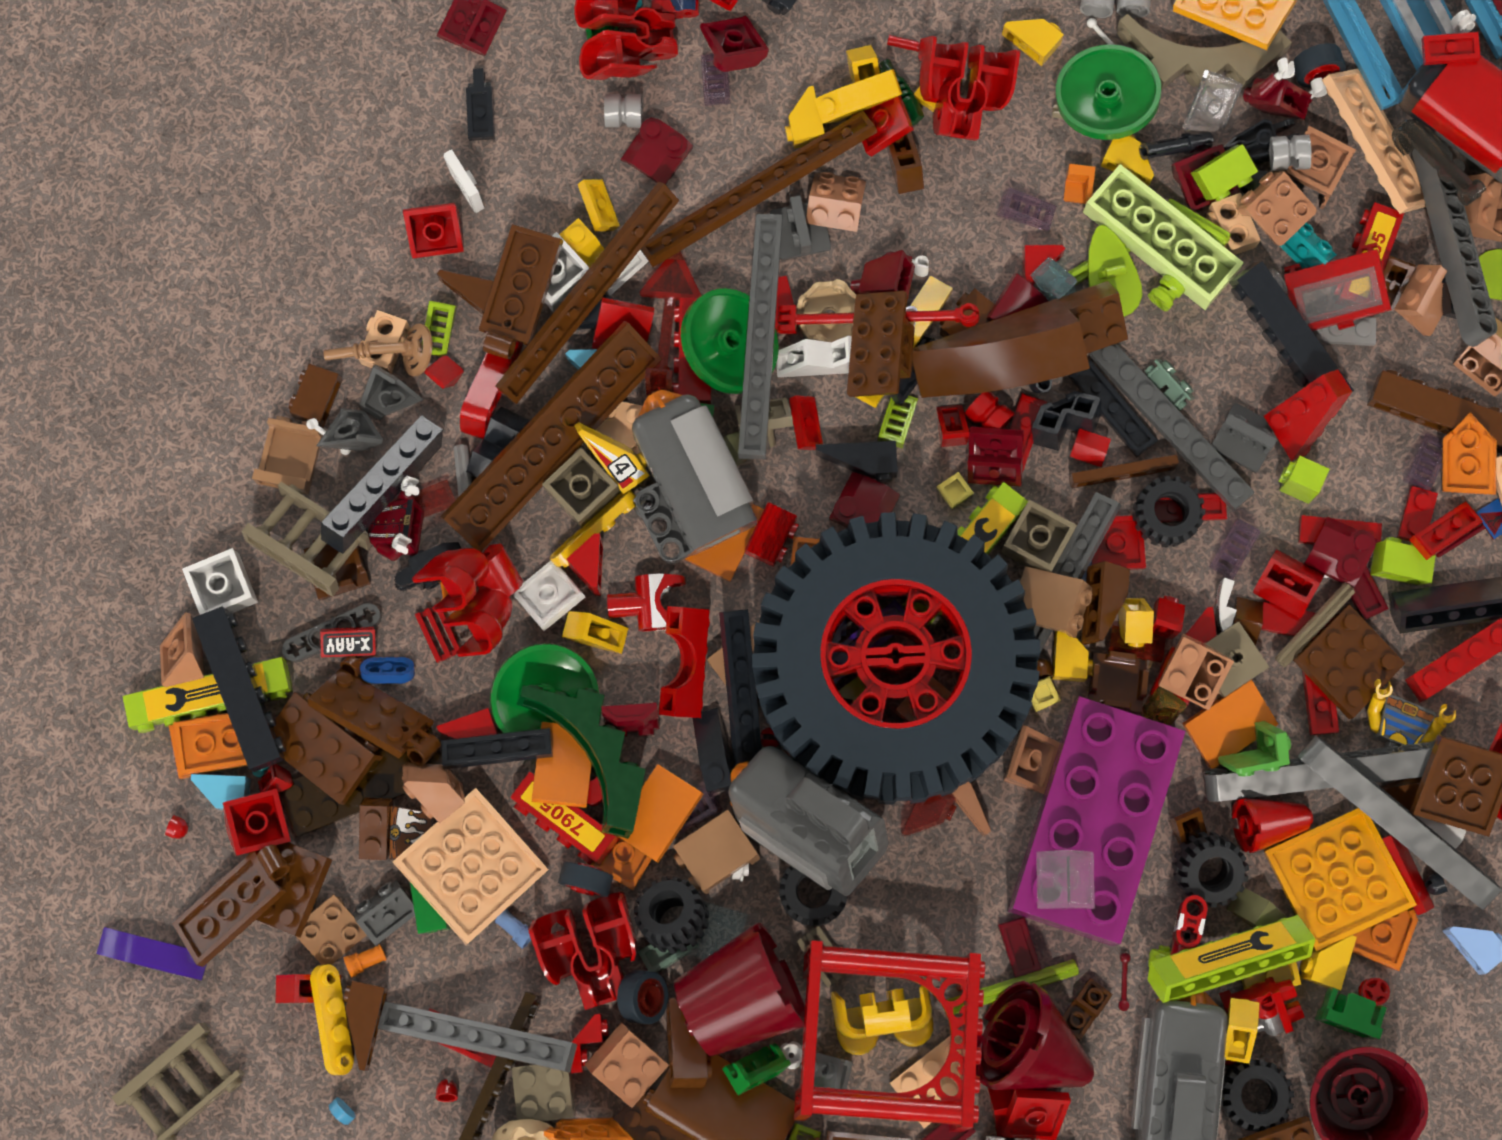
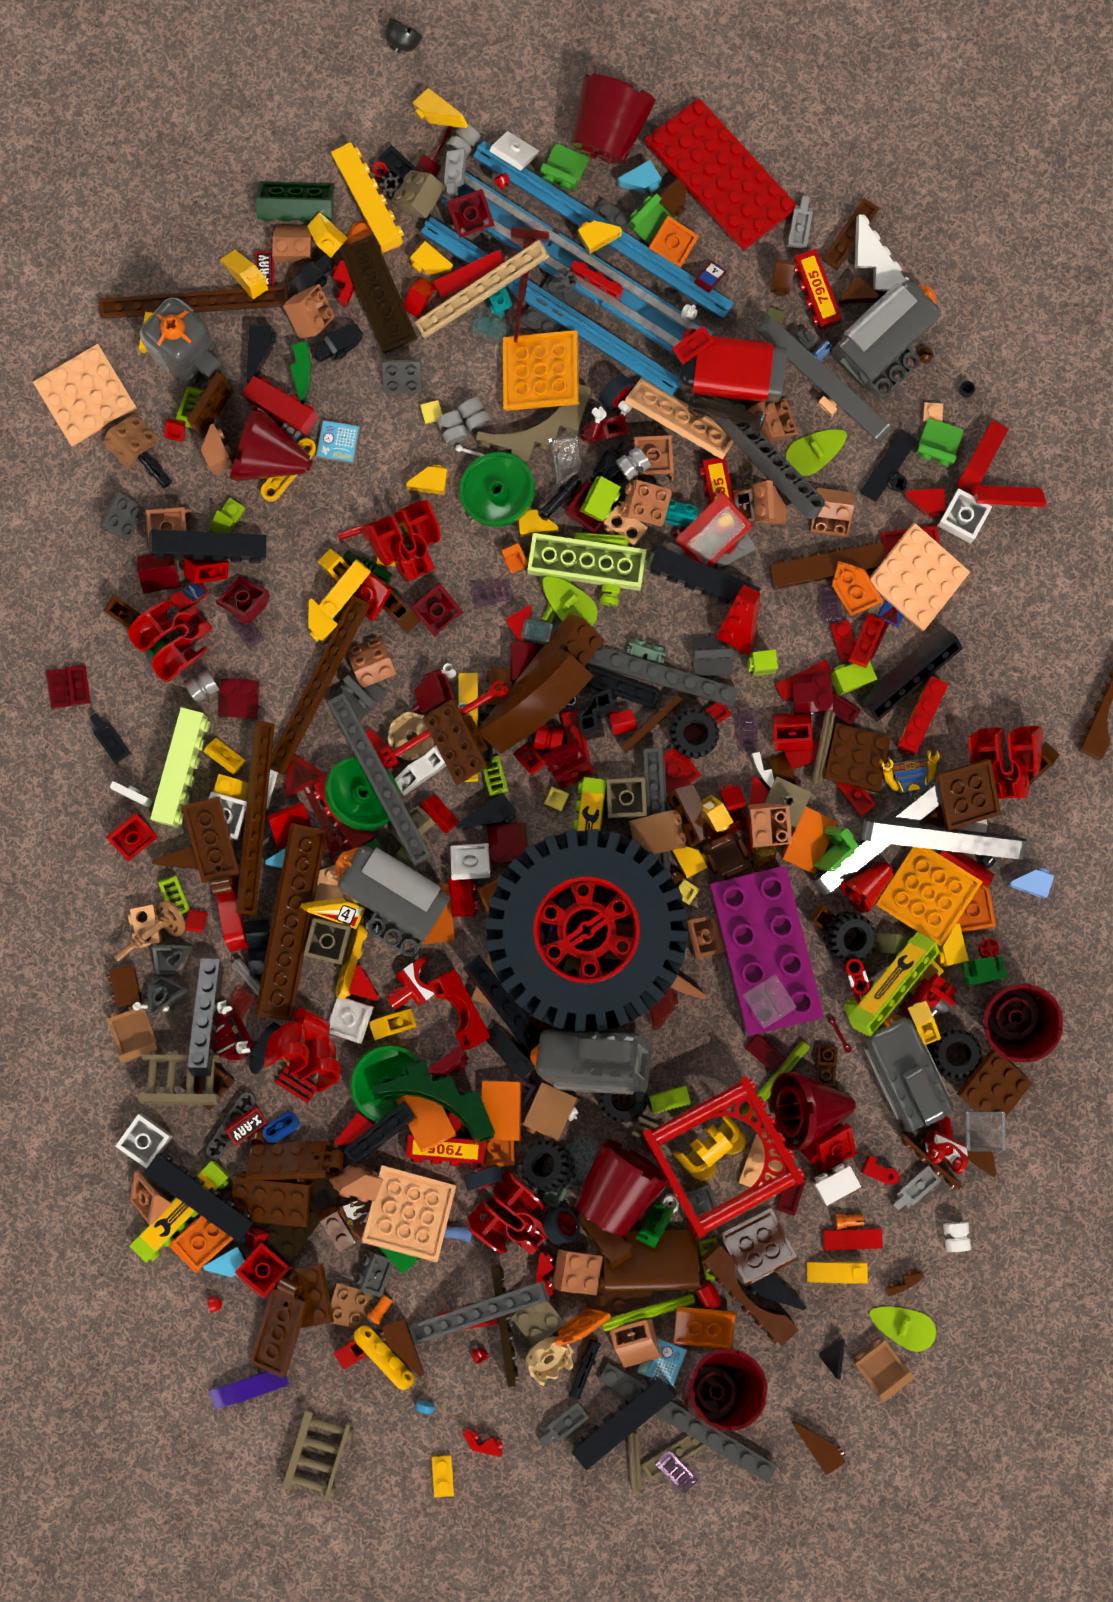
camera: 35 degrees left, 5 degrees up
(539, 184) = (179, 767): none -> yellowish green brick
(806, 498) = (470, 861): none -> white plate
(868, 928) = (669, 1099): none -> lime brick
(951, 187) = (436, 609): none -> dark red slope

